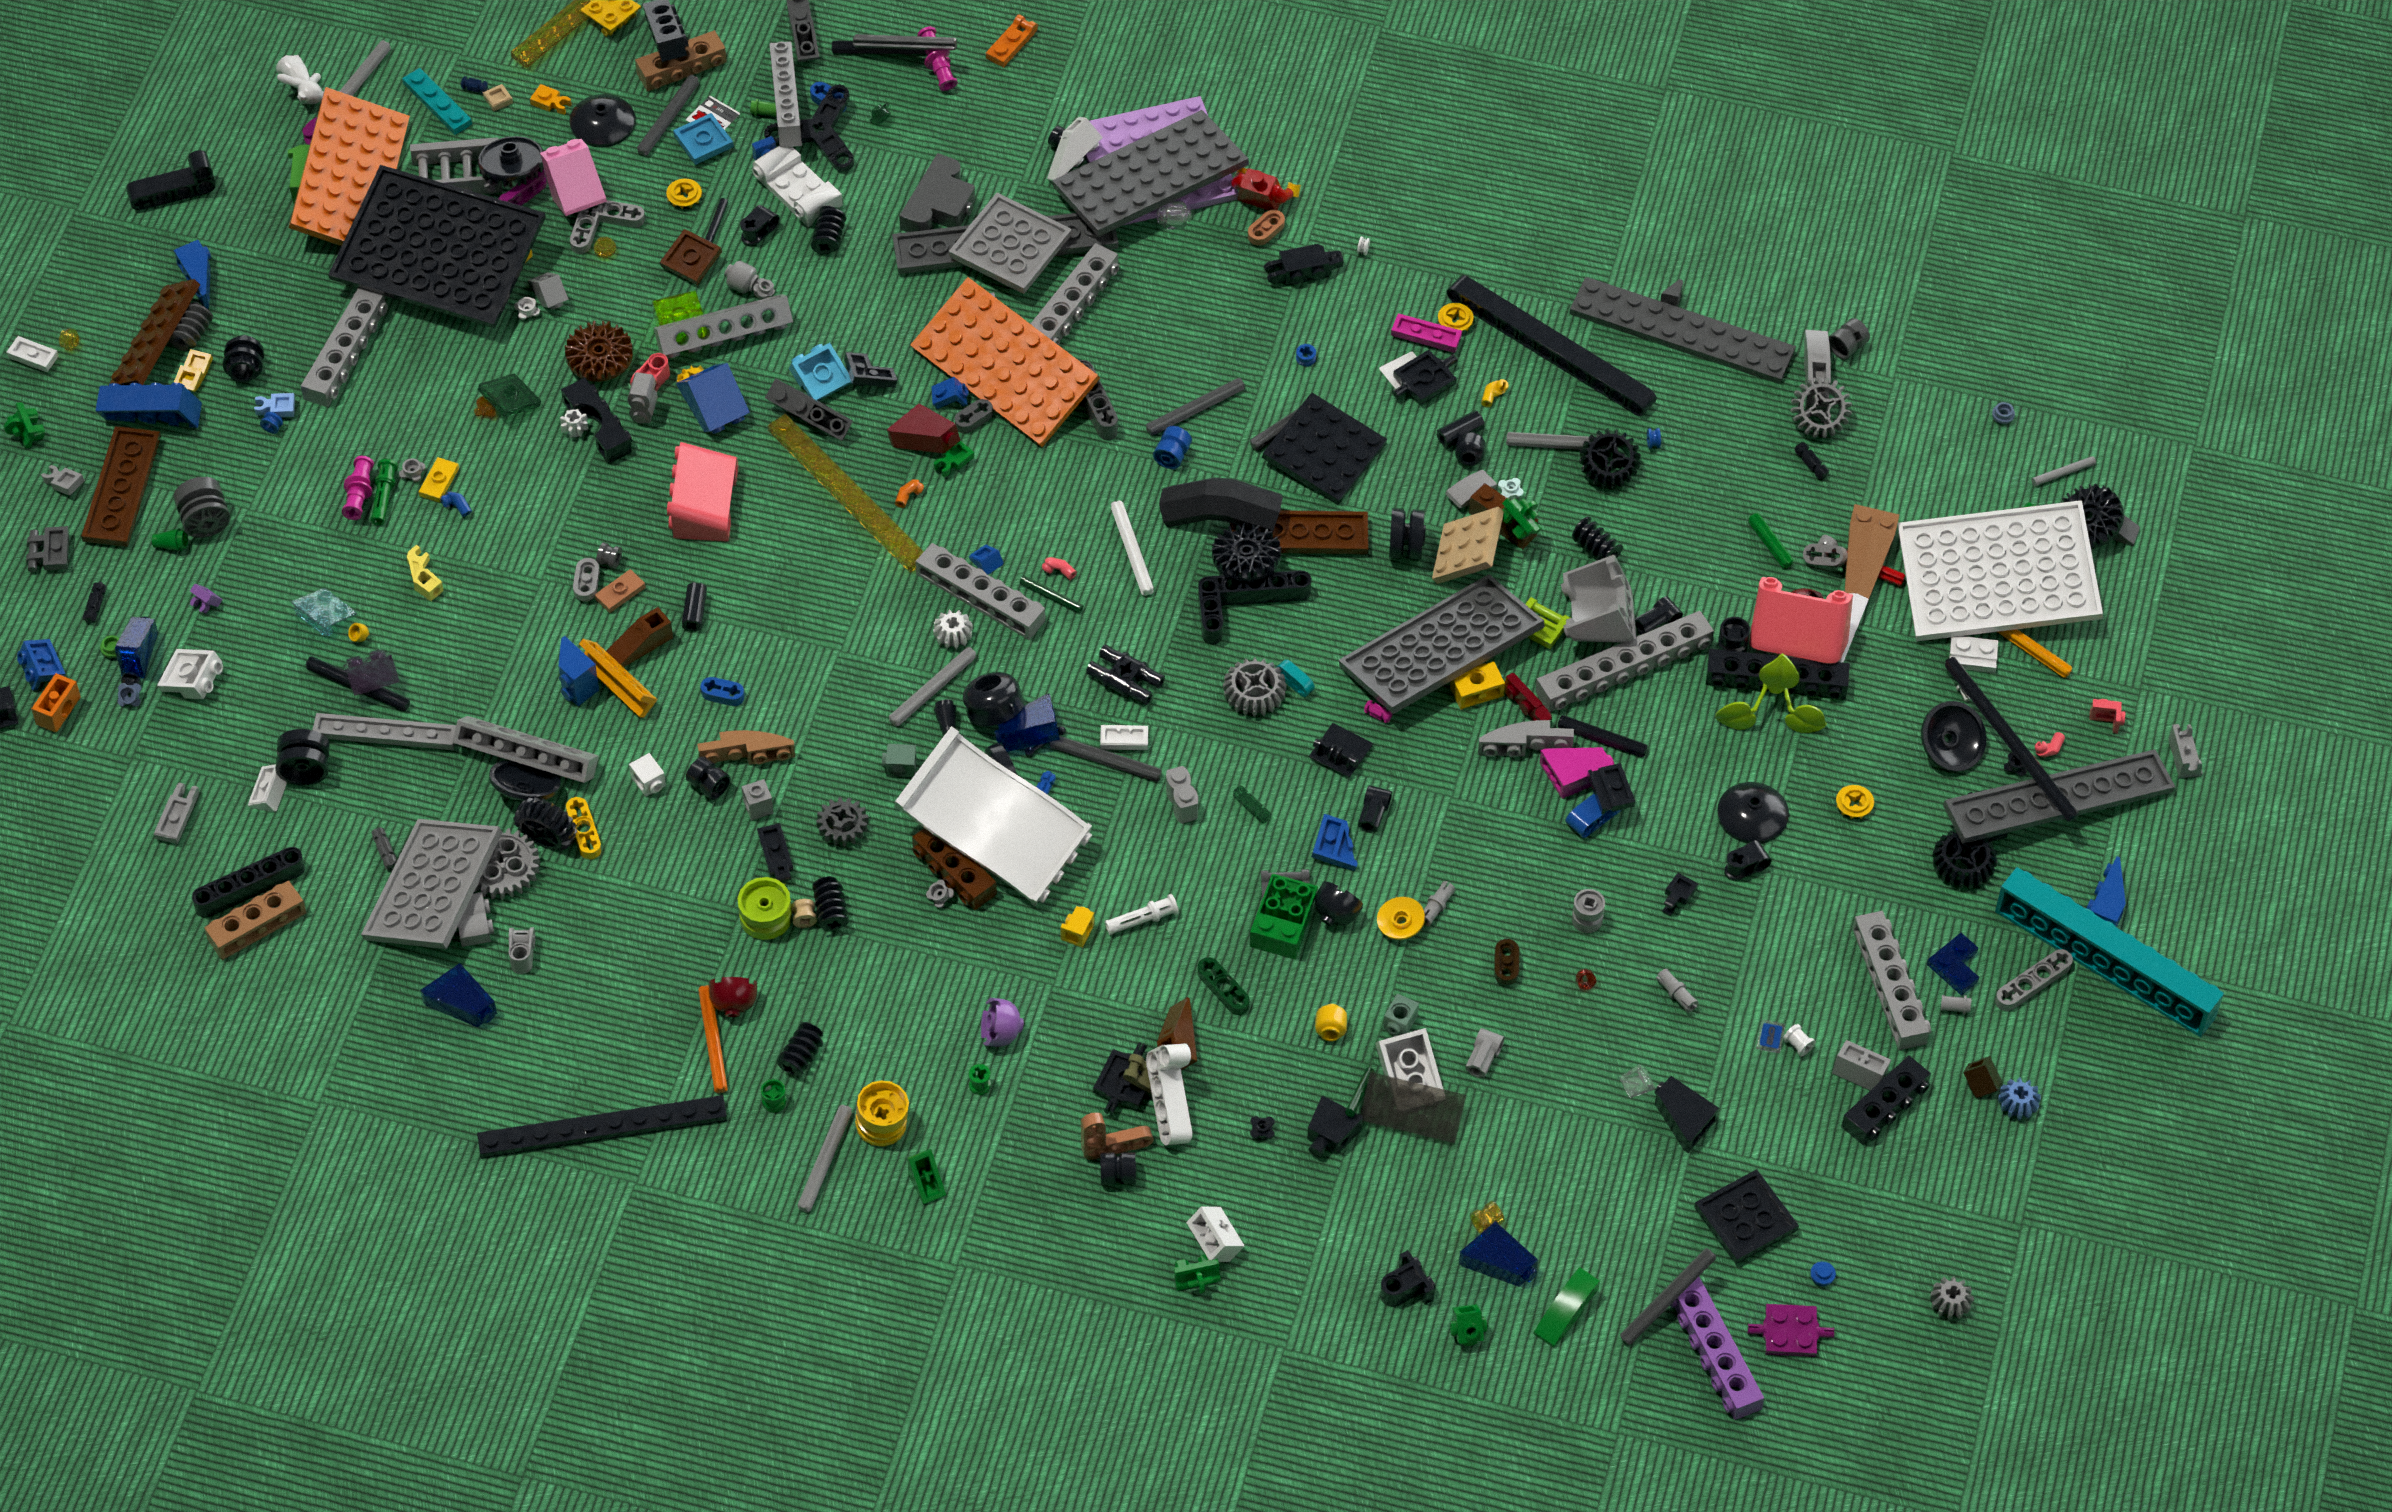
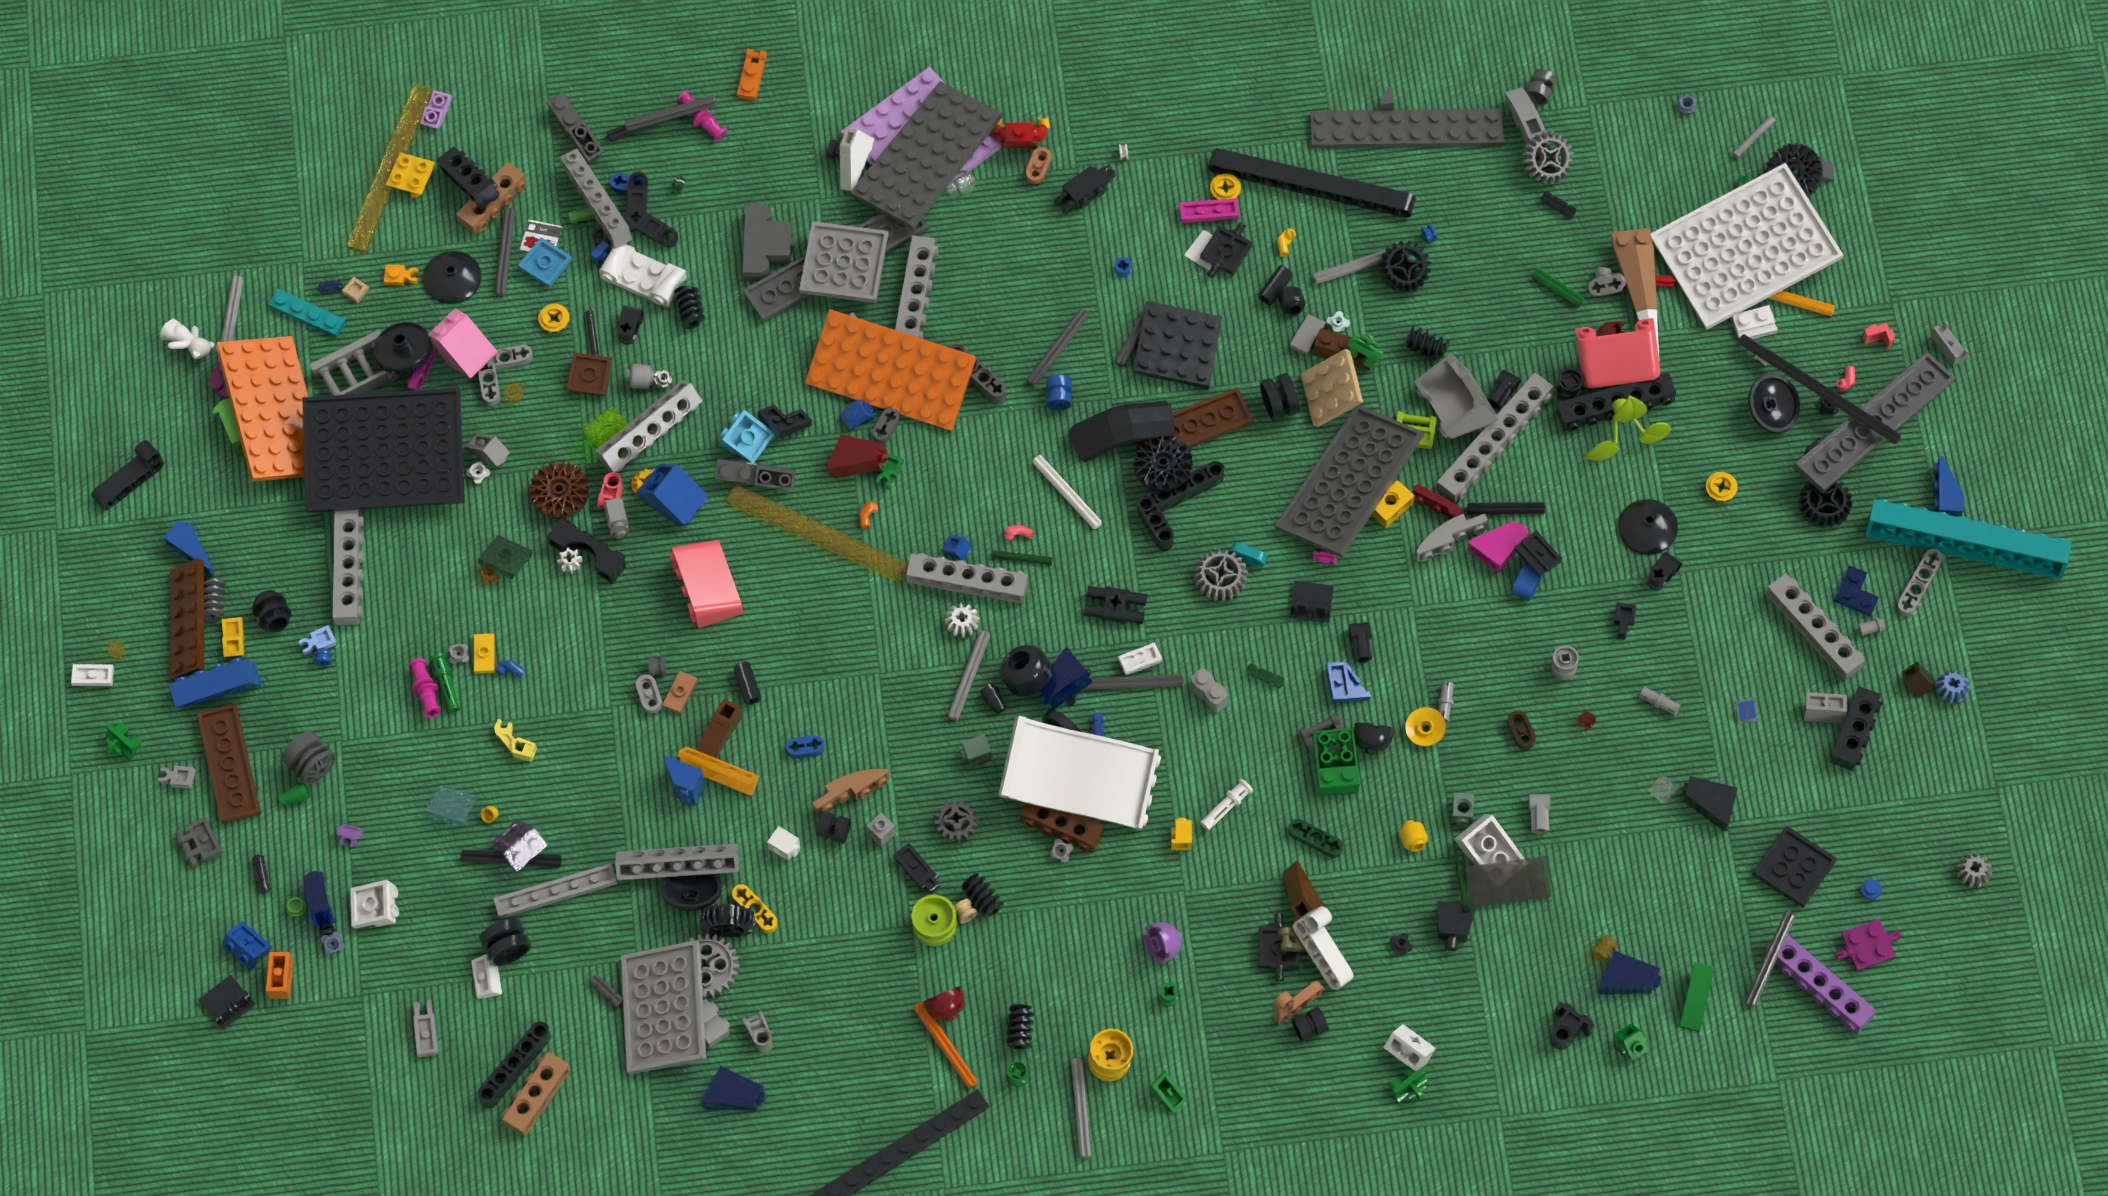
camera: 20 degrees left, 10 degrees up
(1799, 1040) = (1769, 705): white bush -> none

